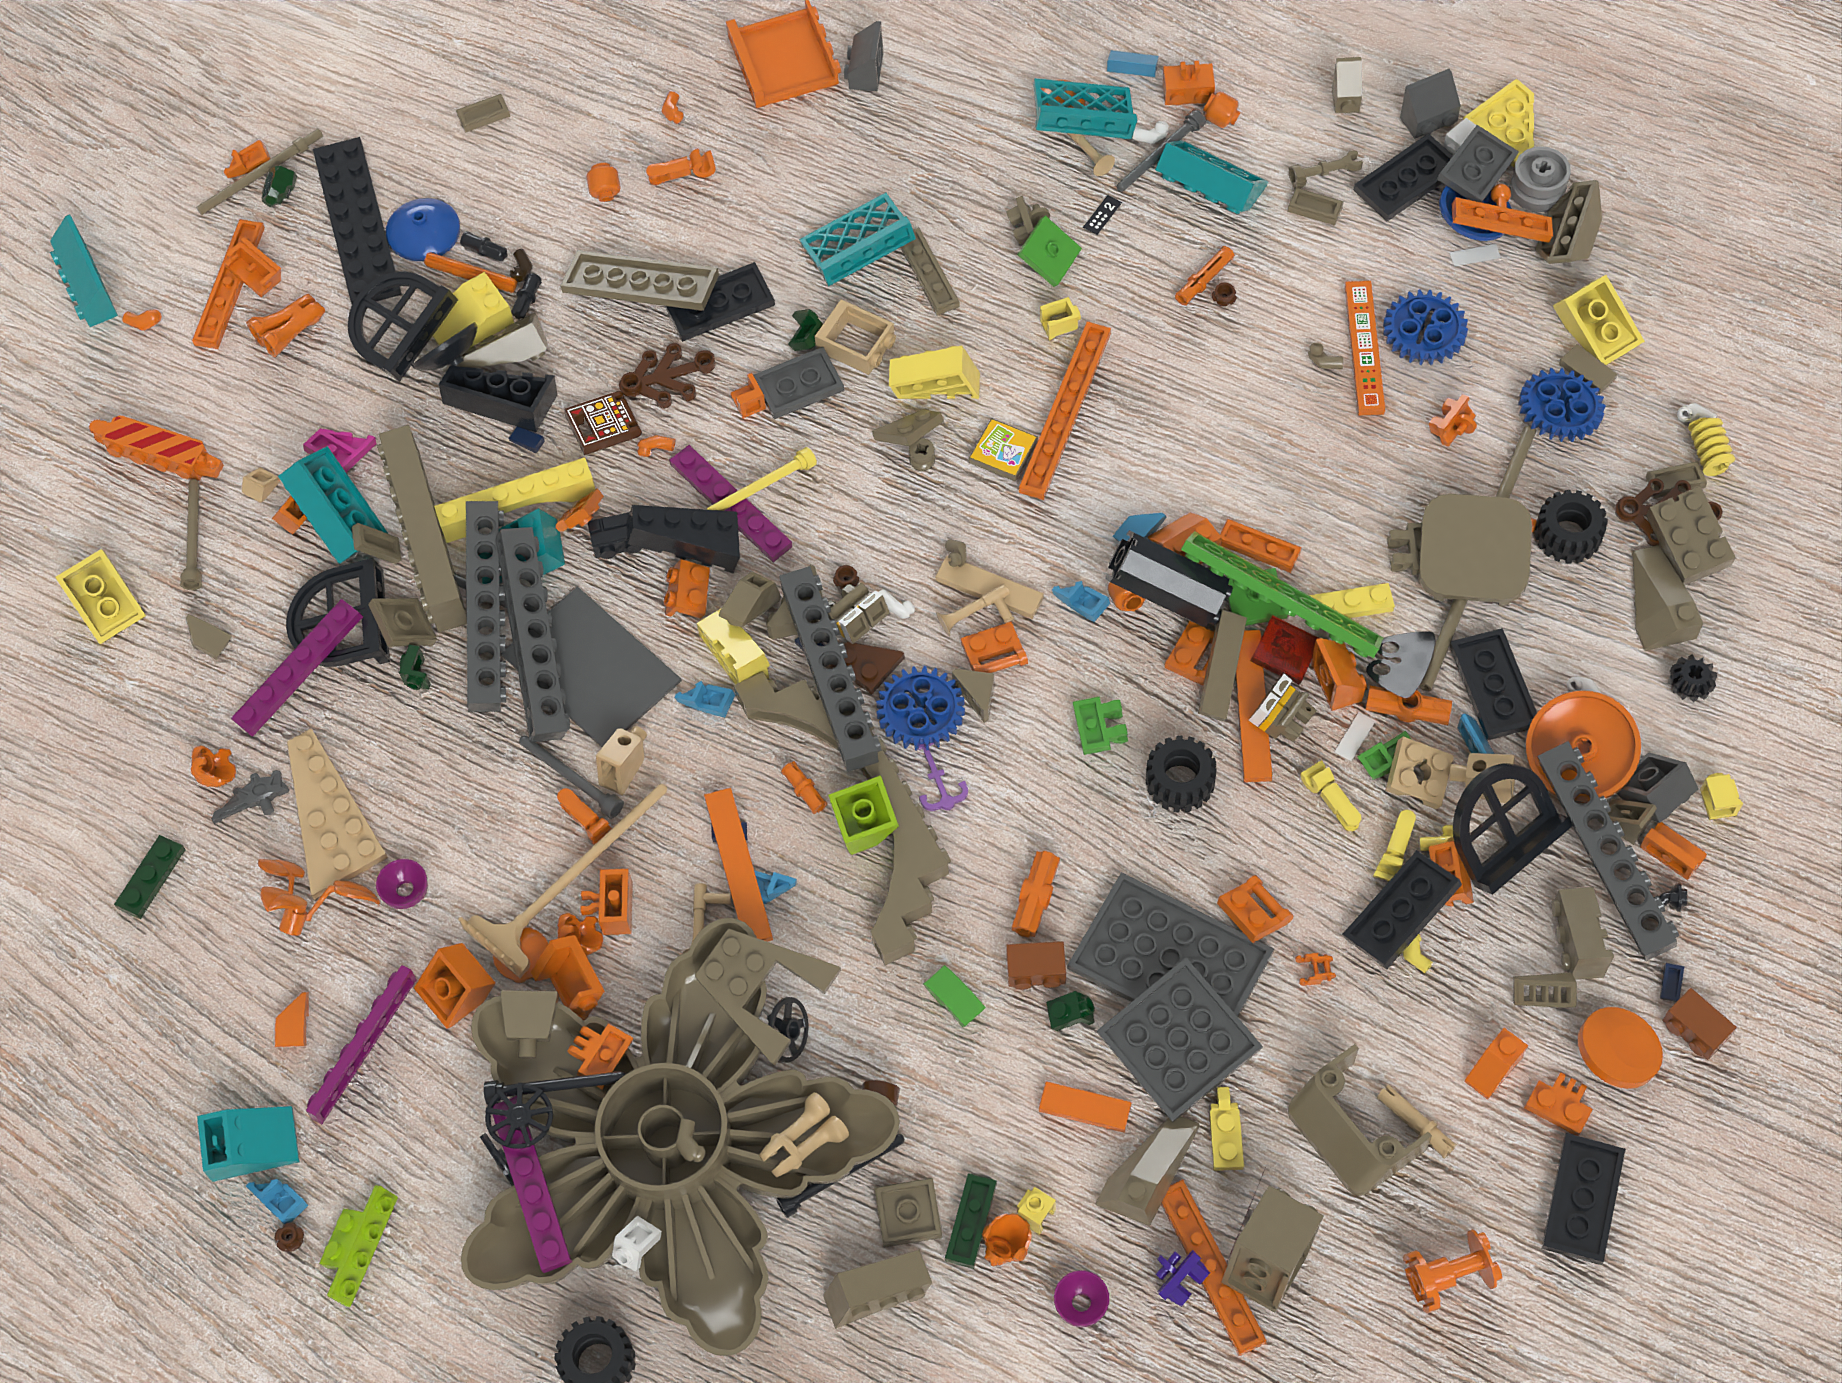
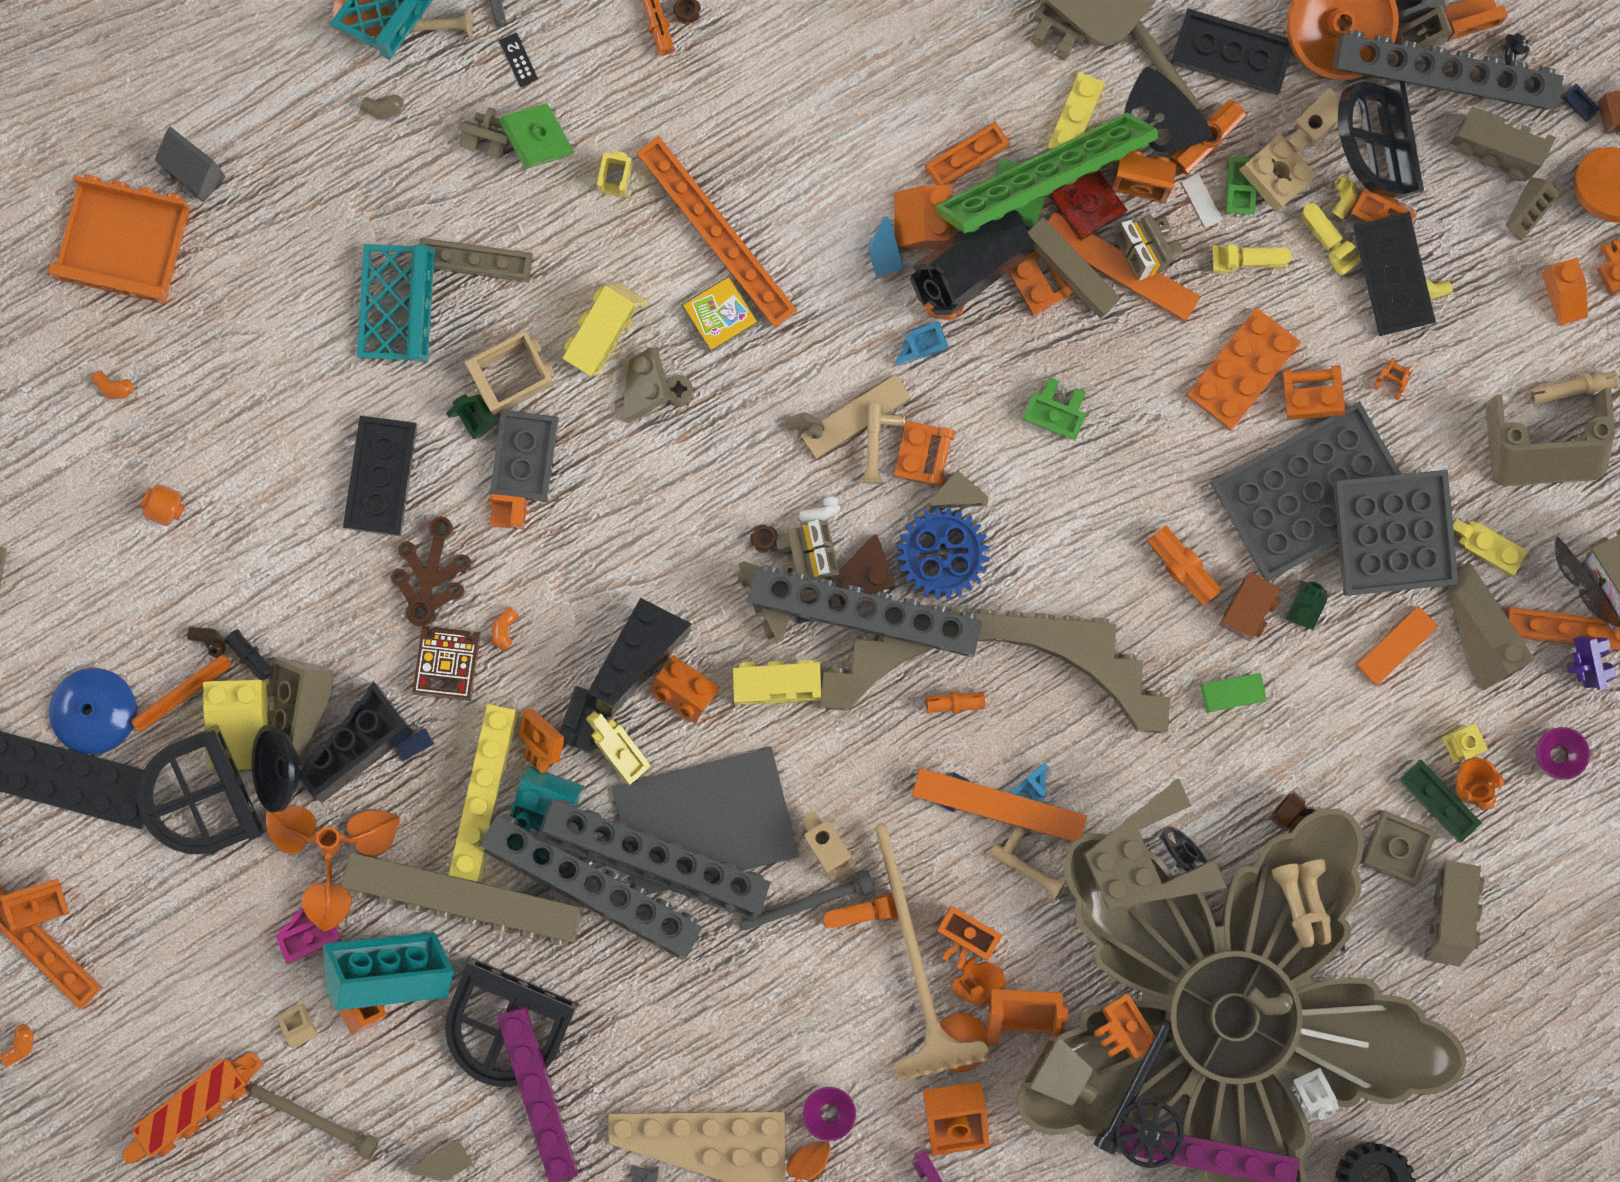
camera: 65 degrees left, 20 degrees up
(283, 326) = (115, 926): orange piece -> none
(376, 543) = (451, 950): dark tan tile -> none
(402, 622) = (553, 971): dark tan tile -> none
(410, 668) = (600, 987): dark green bracket -> none
(411, 398) = (294, 826): none -> orange plant
(483, 246) = (160, 663): black axle -> none
(499, 1157) = (1132, 1169): black wheel -> none
(607, 566) = (618, 748): none -> light yellow hinge
(640, 280) = (309, 537): dark tan plate -> none
(702, 167) = (202, 397): orange piece -> none
(708, 699) = (809, 734): dark azure slope -> none
(715, 488) = (612, 595): magenta plate -> none
(749, 599) = (748, 643): dark tan slope -> none
(804, 459) = (614, 502): light yellow piece -> none
(864, 814) = (1023, 666): lime slope -> none
(946, 802) = (1044, 586): medium lavender piece -> none
(1000, 153) = (383, 109): none -> dark tan arm
(1181, 794) = (1164, 351): black tyre -> none
(1237, 847) = (1243, 369): none -> orange plate
(1473, 735) = (1276, 105): dark azure slope -> none

